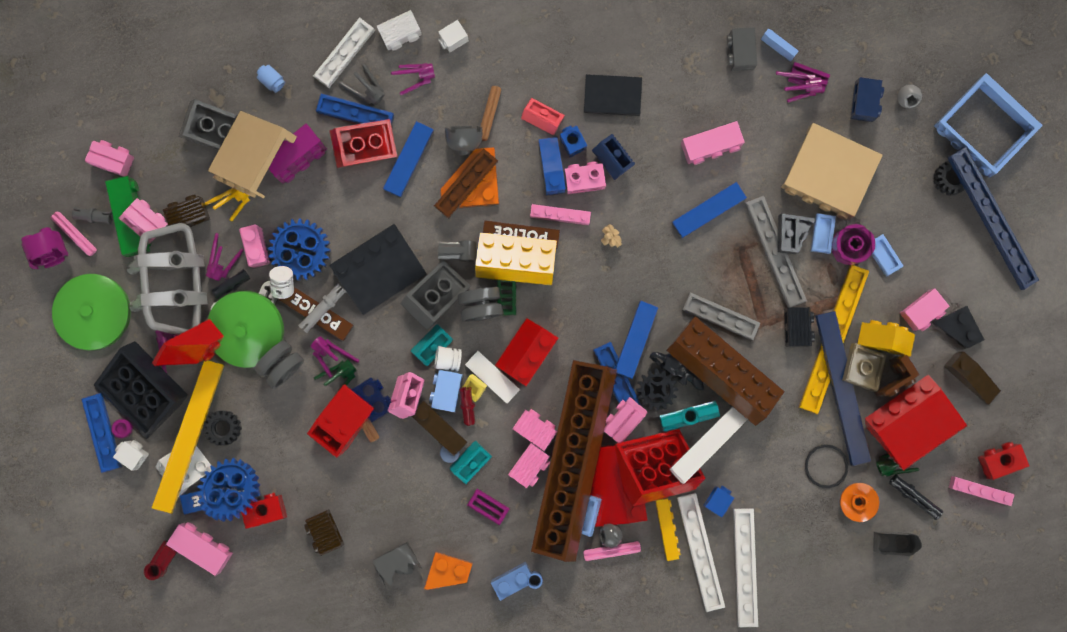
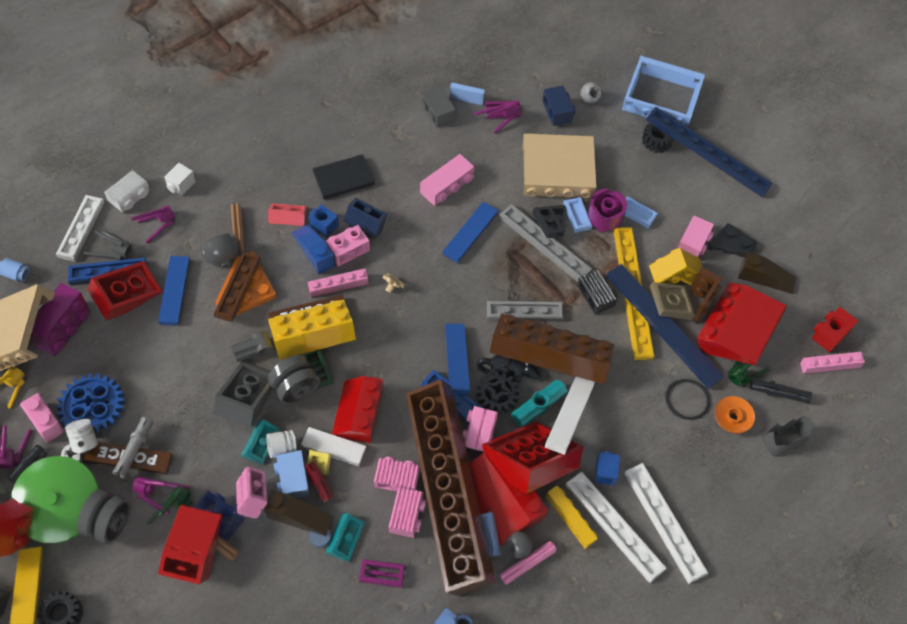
camera: 30 degrees left, 25 degrees down
(378, 269) = (178, 391): black slope -> none

